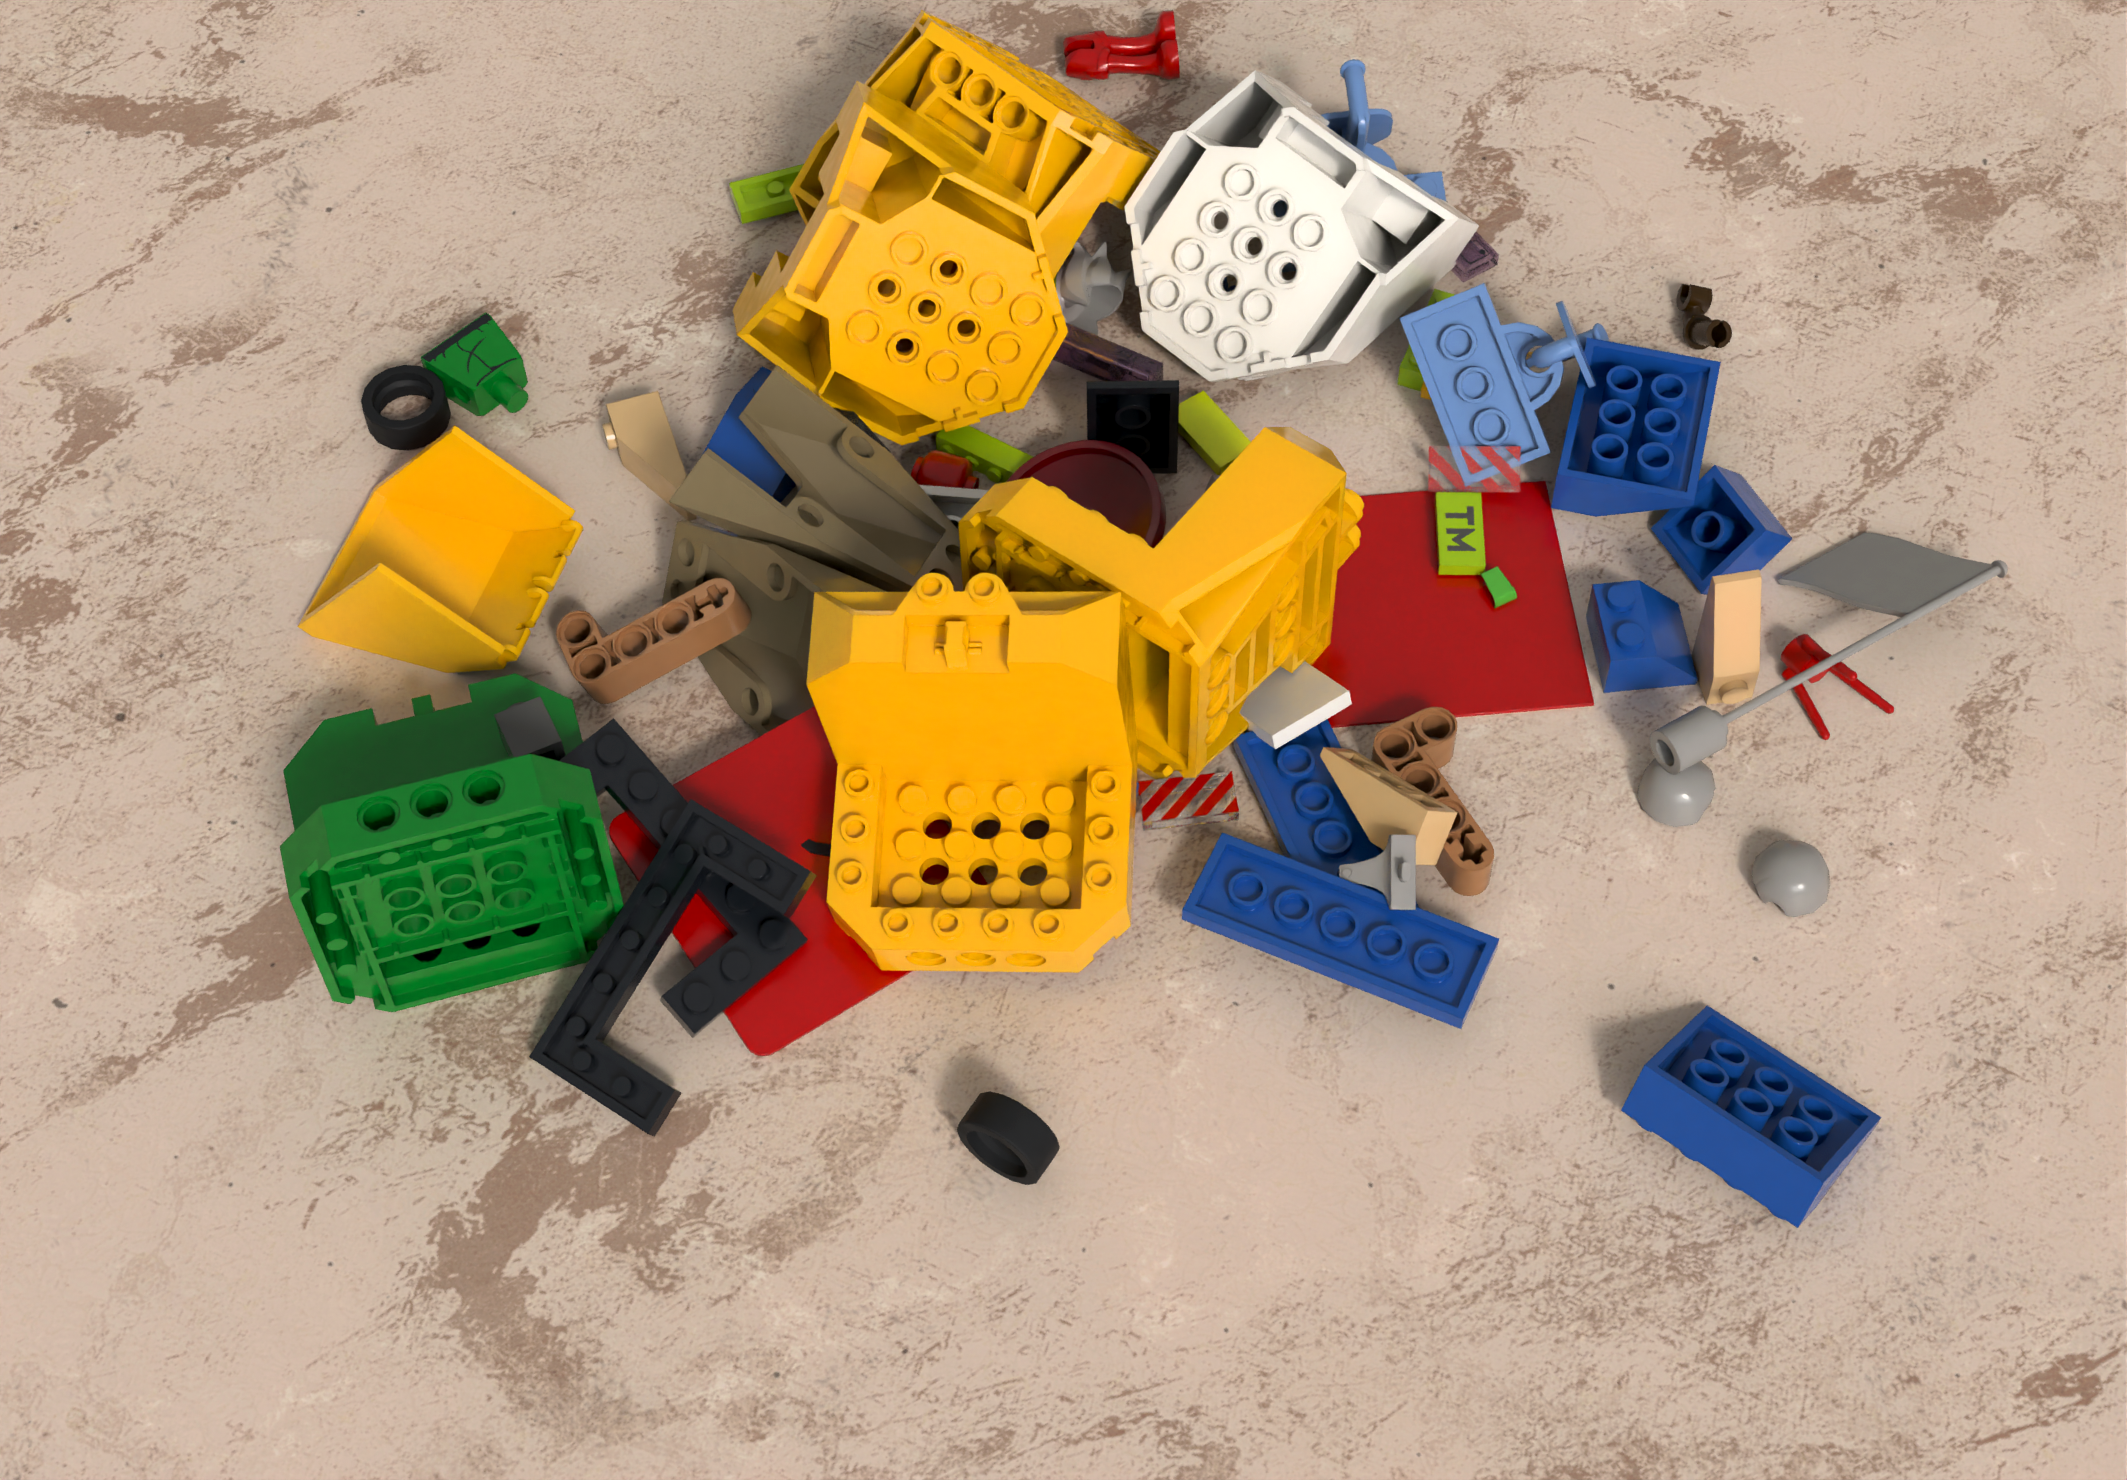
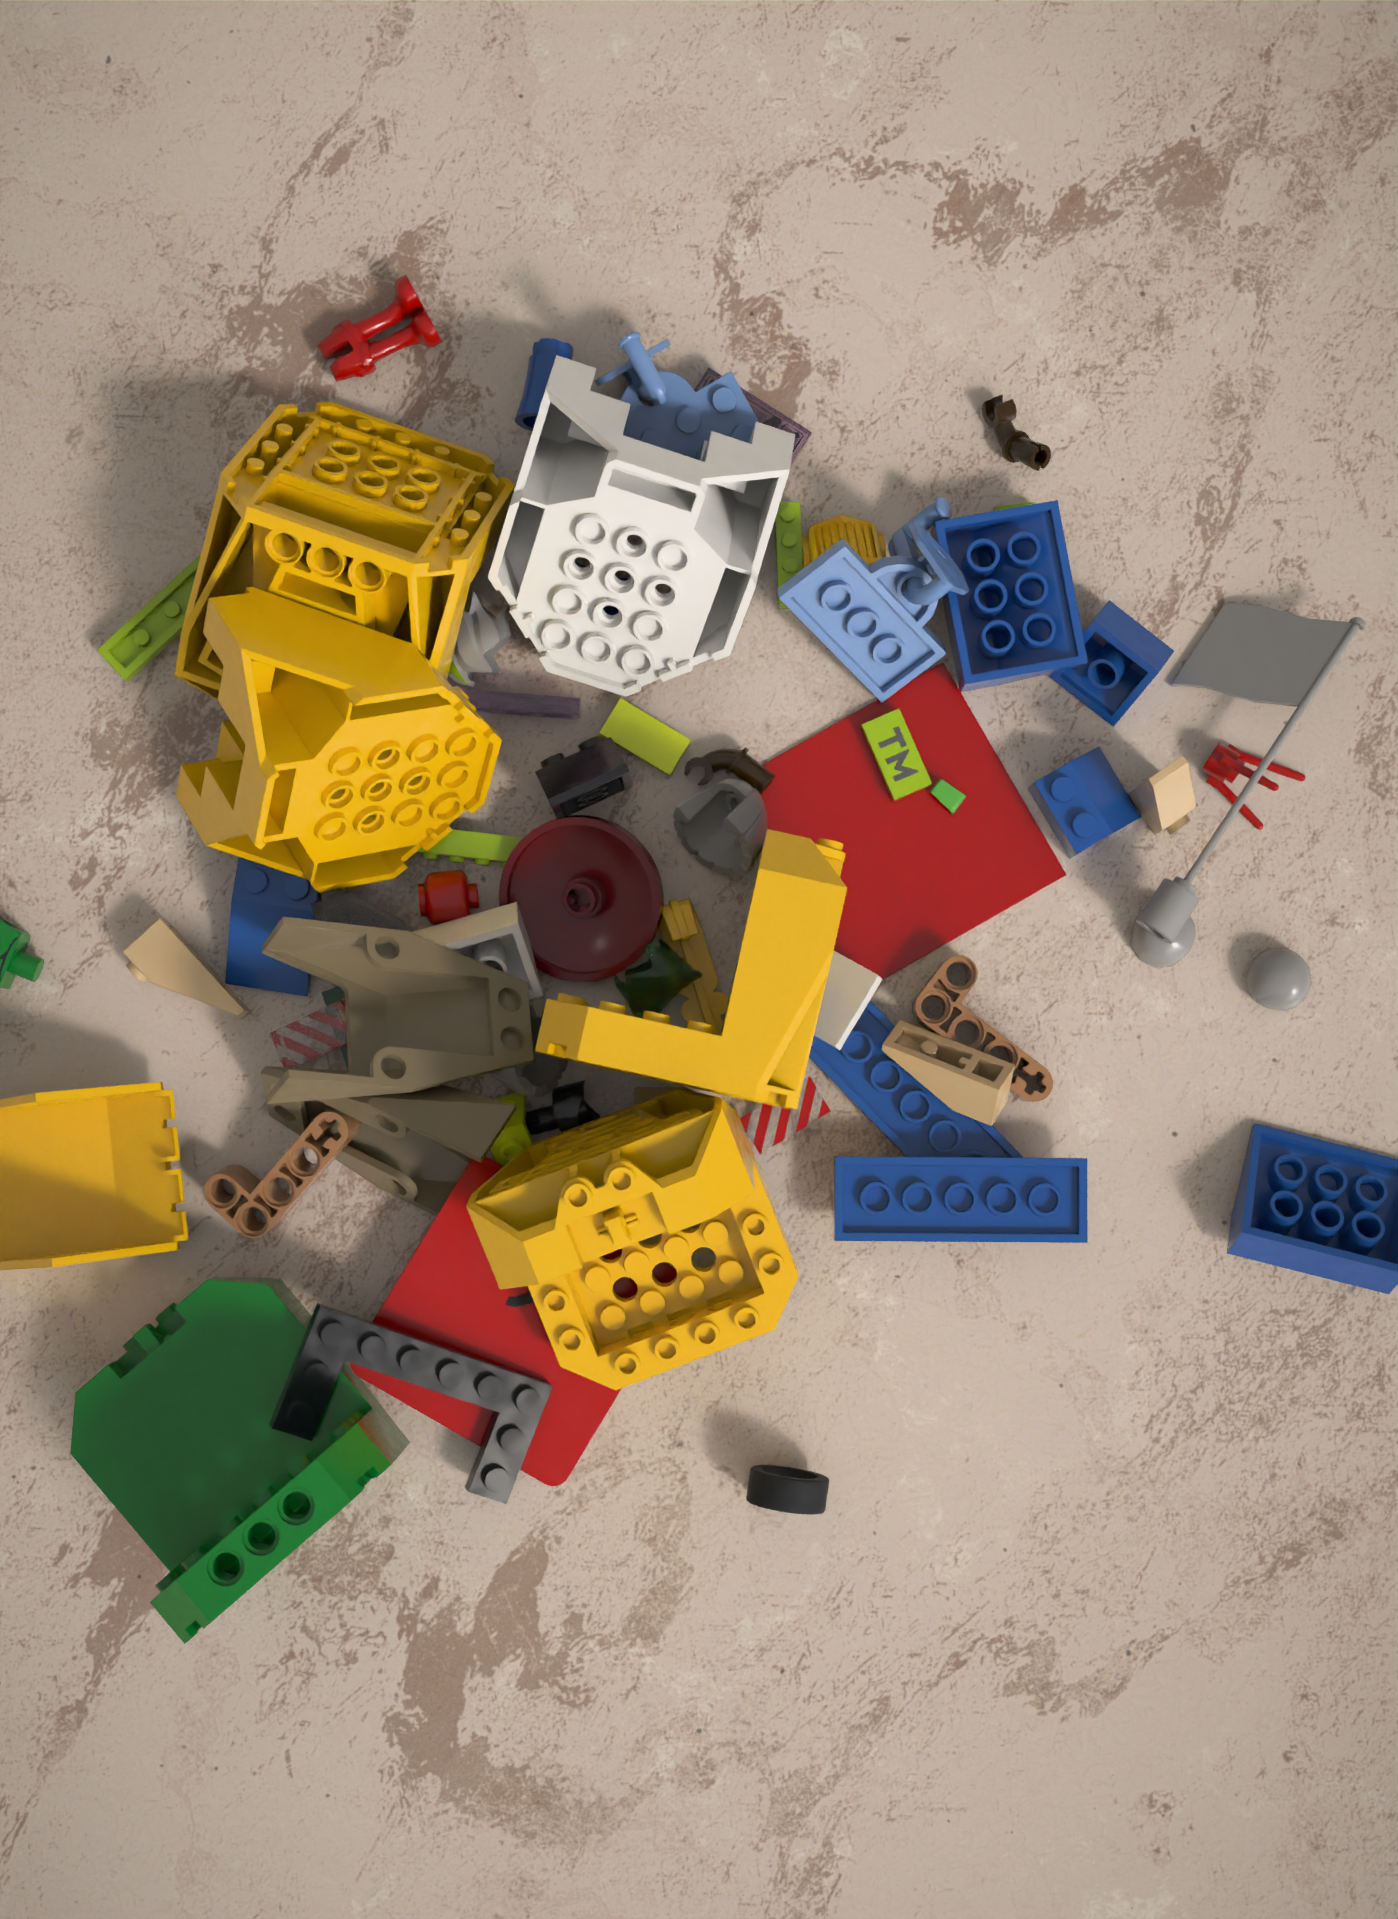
camera: 30 degrees left, 30 degrees up
(529, 730) = (259, 1348): dark grey brick -> none
(576, 1034) = (441, 1381): black plate -> none
(1389, 872) = (981, 1139): light grey piece -> none
(1474, 469) = (886, 690): clear tile -> none

